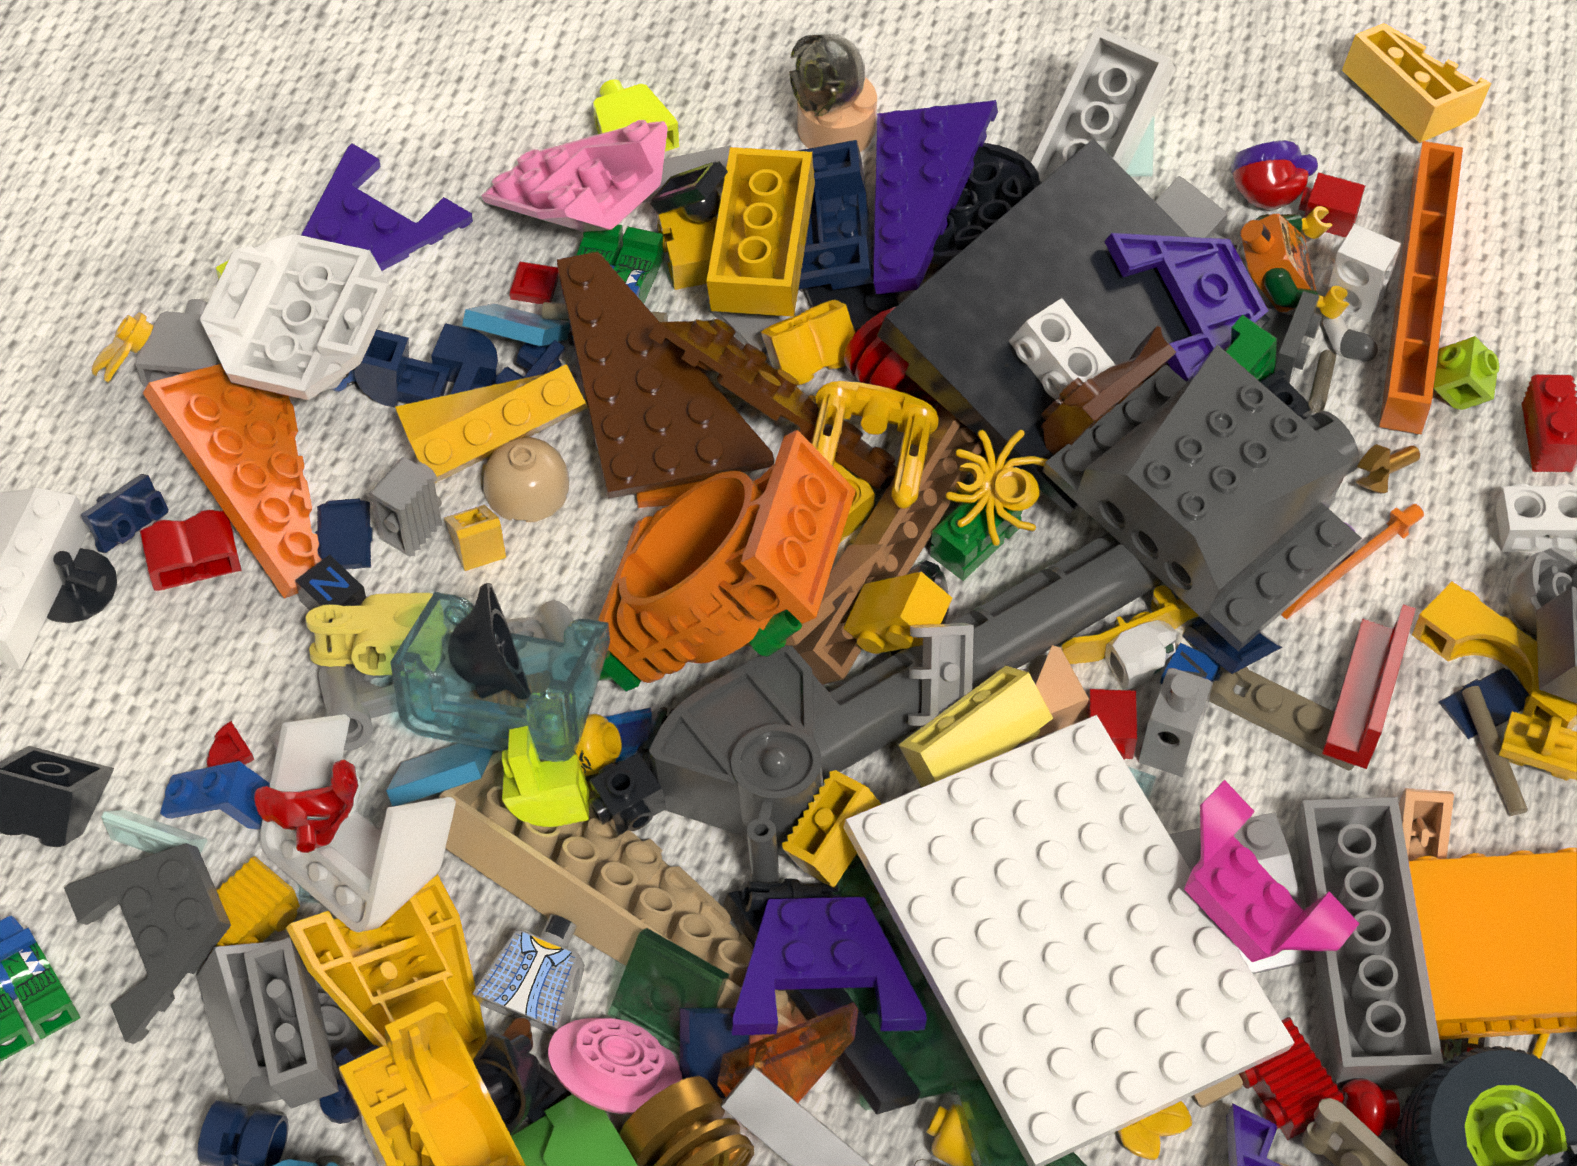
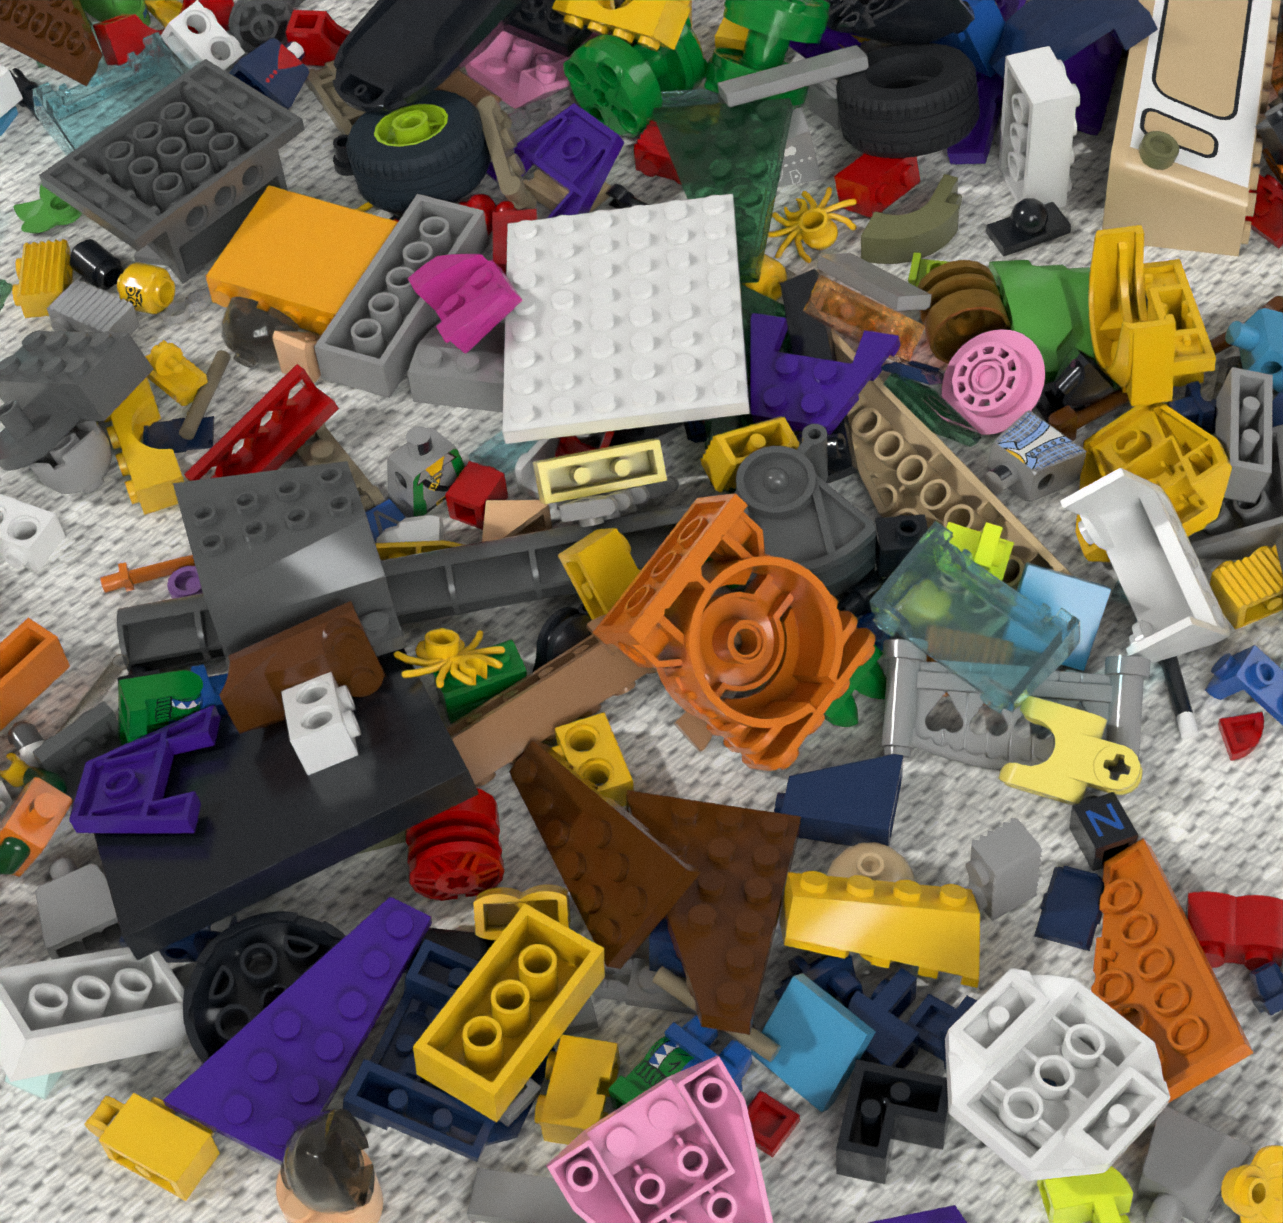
camera: 150 degrees left, 5 degrees down
(292, 808) = (1167, 591): red helmet -> none
(428, 302) = (888, 1107): none -> black brick
(476, 536) = (942, 842): yellow slope -> none
(485, 651) = (983, 636): black hat -> none
(577, 537) = (846, 801): none -> dark blue slope
(692, 192) = (559, 1088): black tile -> none
(878, 408) = (509, 785): yellow piece -> none
(1015, 99) = (154, 1142): none -> yellow brick
(1381, 464) = (103, 614): pearl gold bar -> none
(1493, 822) = (250, 331): none -> clear smoke cylinder

